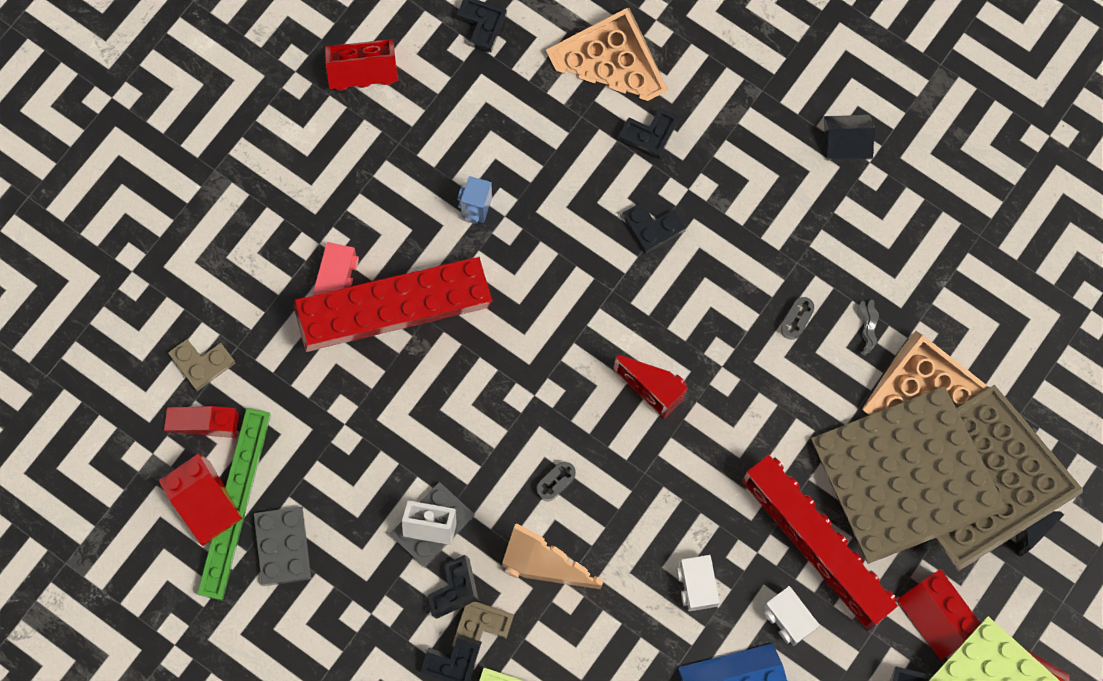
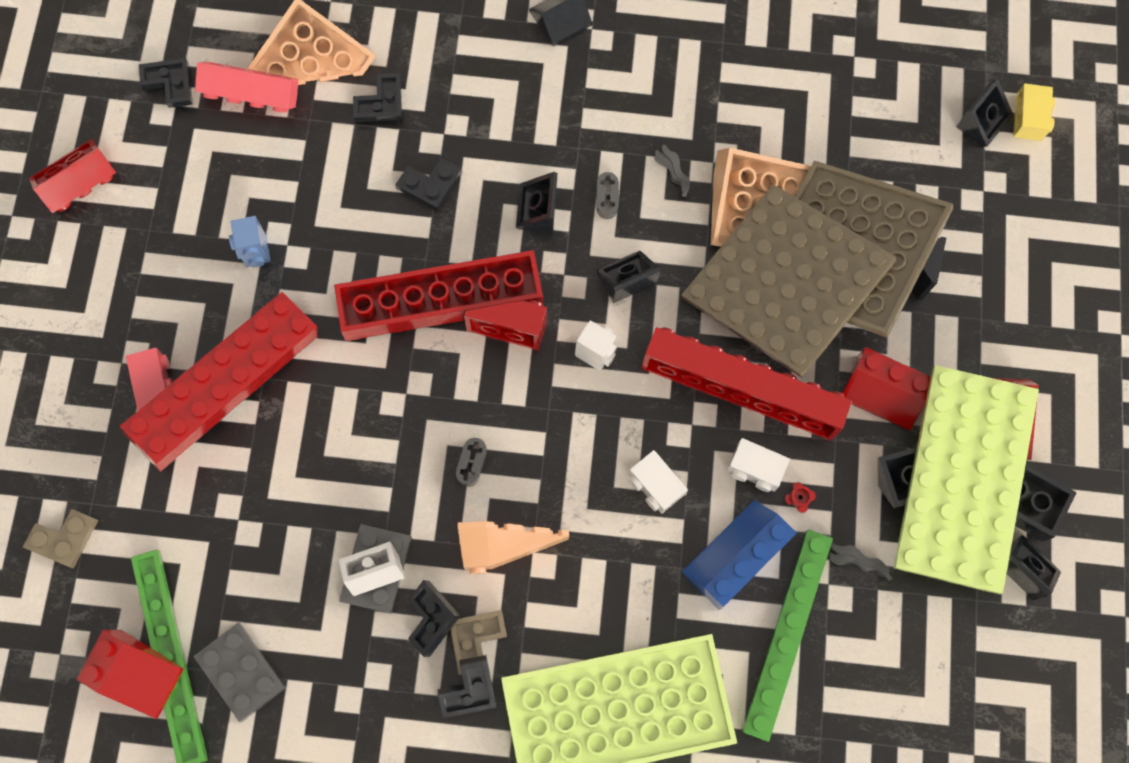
camera: 30 degrees left, 0 degrees up
(202, 421) = (94, 594): red slope -> none
(544, 61) = (246, 85): none -> coral brick
(604, 327) = (434, 294): none -> red brick
(712, 442) = (596, 345): none -> white brick
(733, 293) = (537, 203): none -> black slope
(775, 397) = (628, 275): none -> black slope
(815, 656) = (807, 496): none -> red plate

